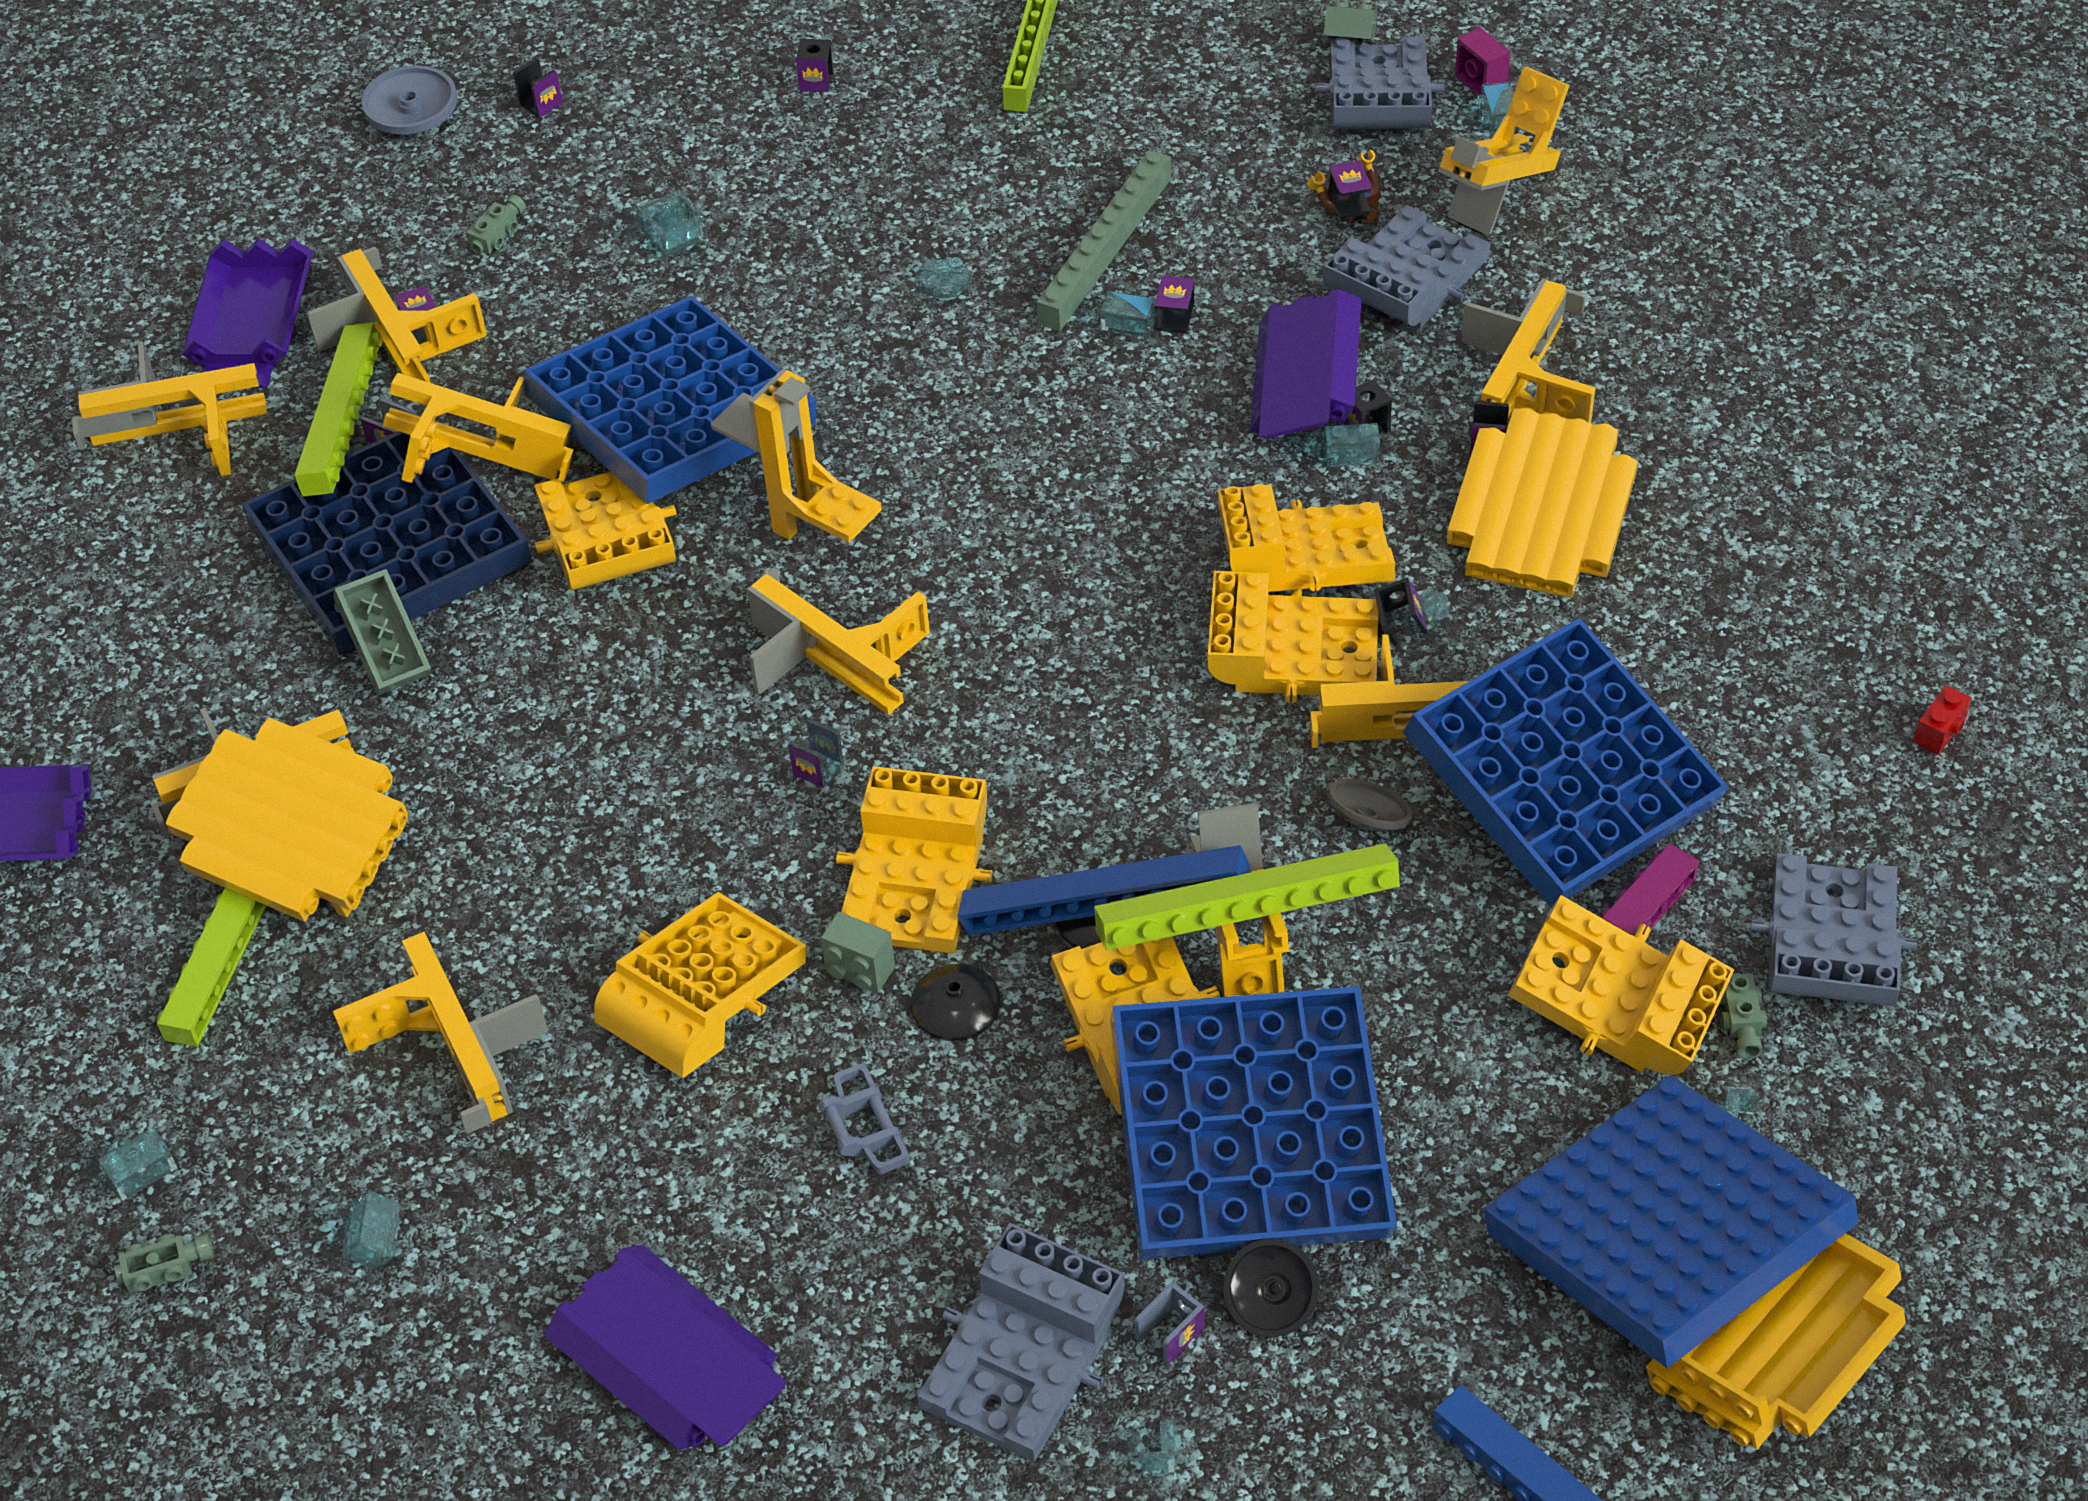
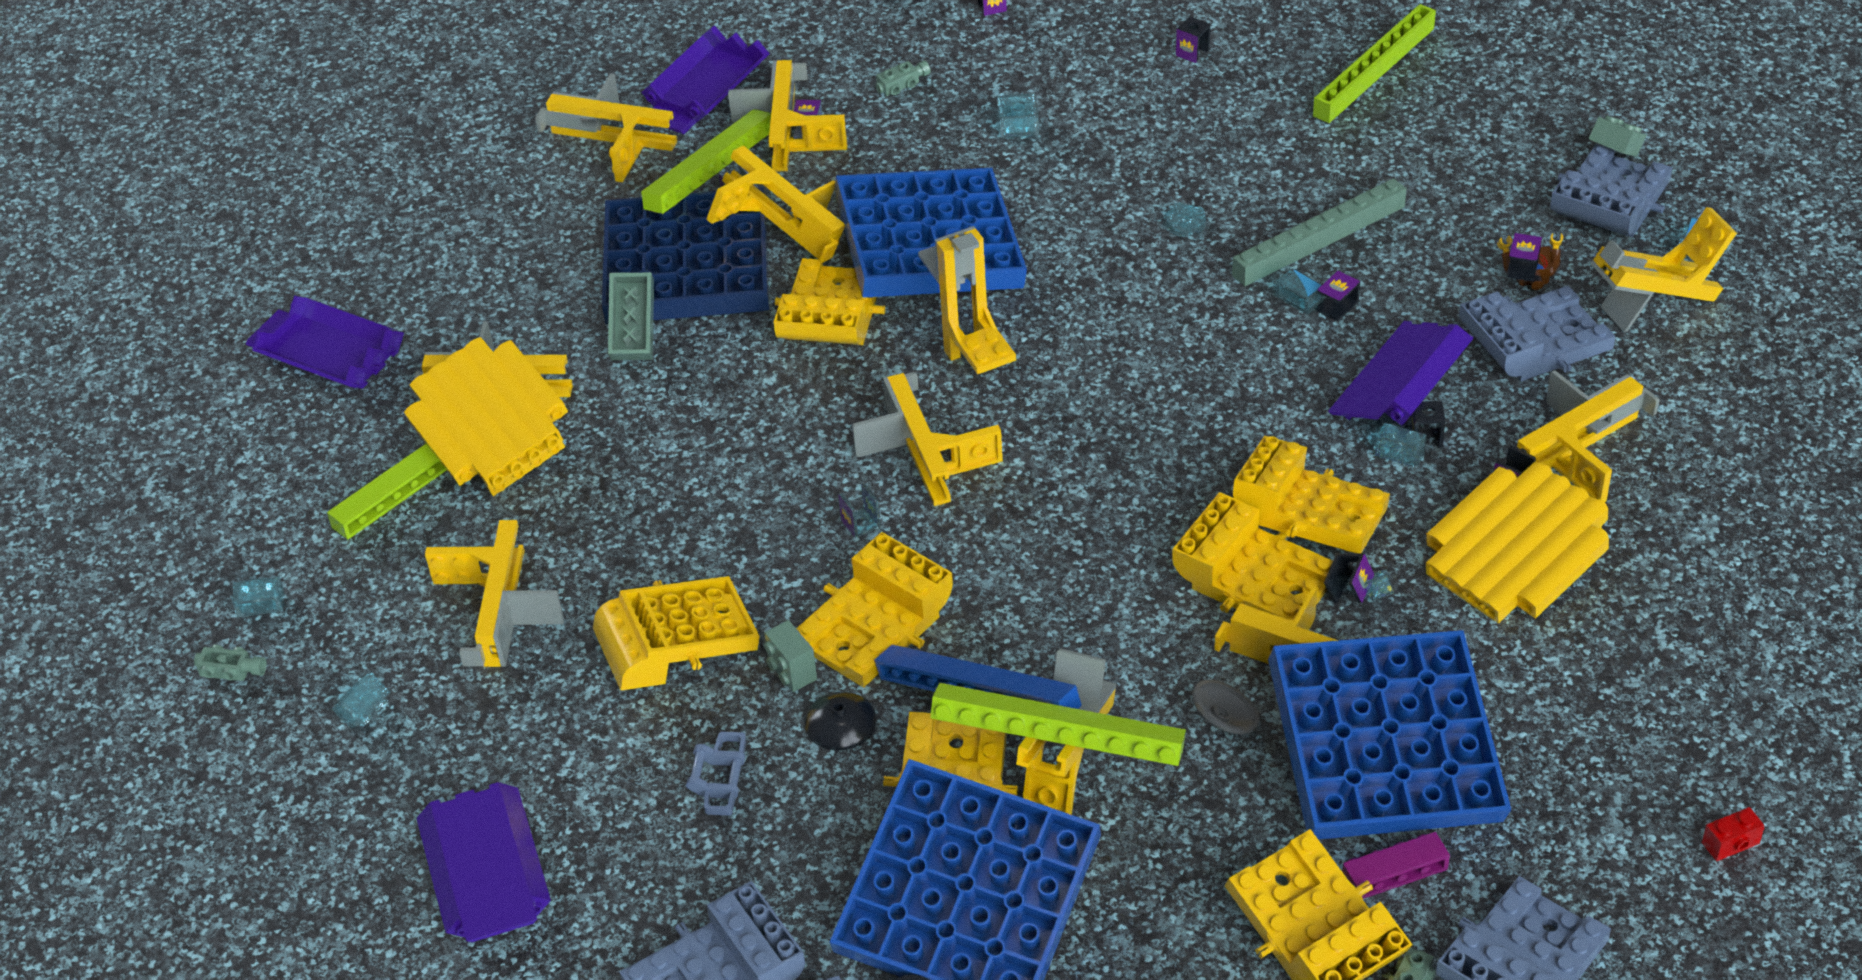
camera: 30 degrees right, 5 degrees down
(1481, 60) = (1701, 192): magenta brick -> none

